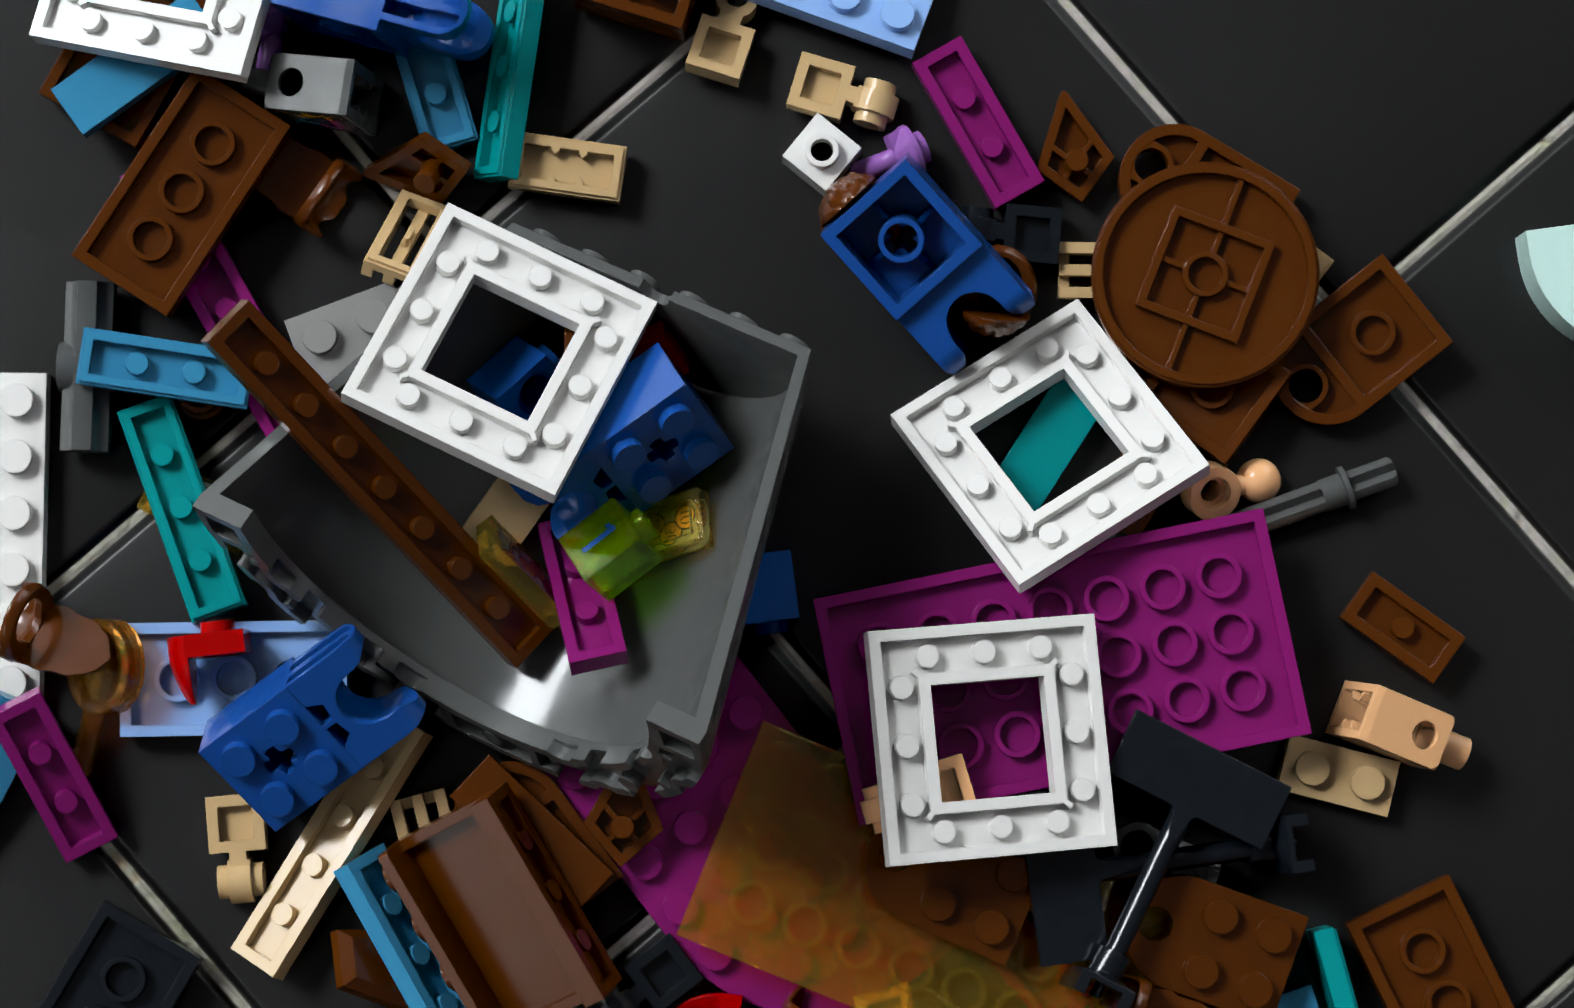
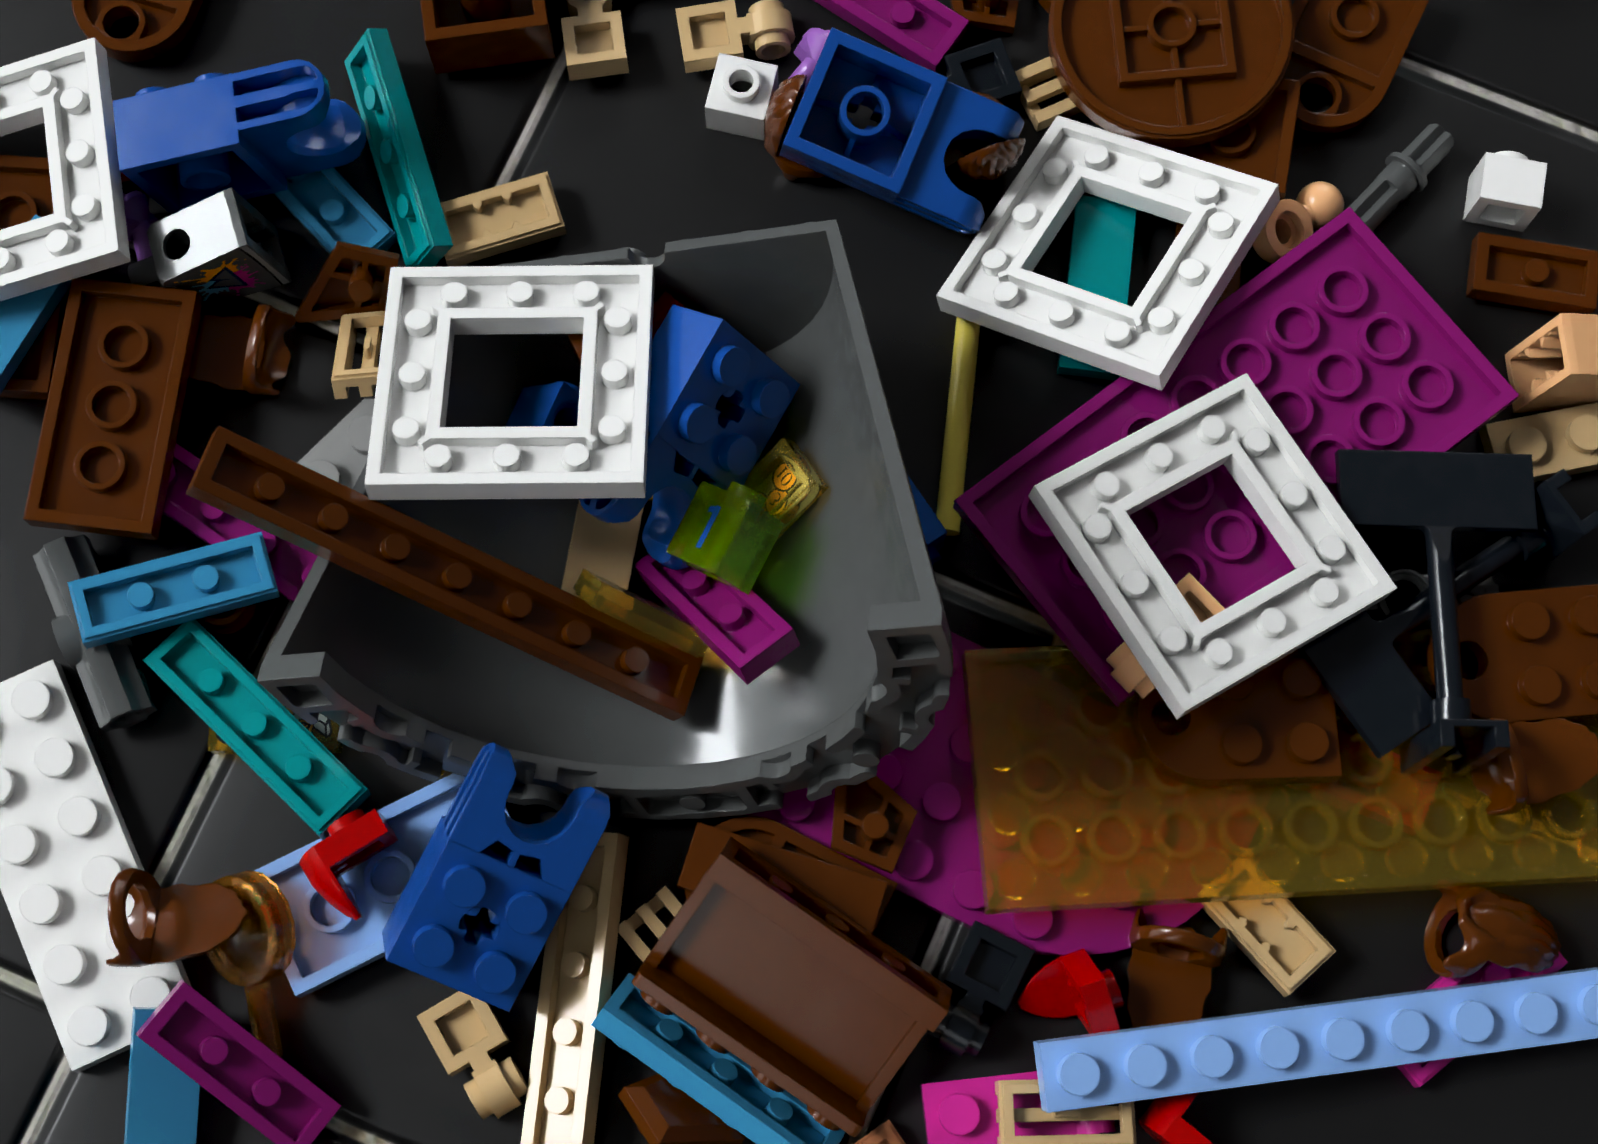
camera: 25 degrees left, 10 degrees down
(859, 526) = (957, 423): none -> light yellow bar
(1417, 544) = (1505, 191): none -> white plate

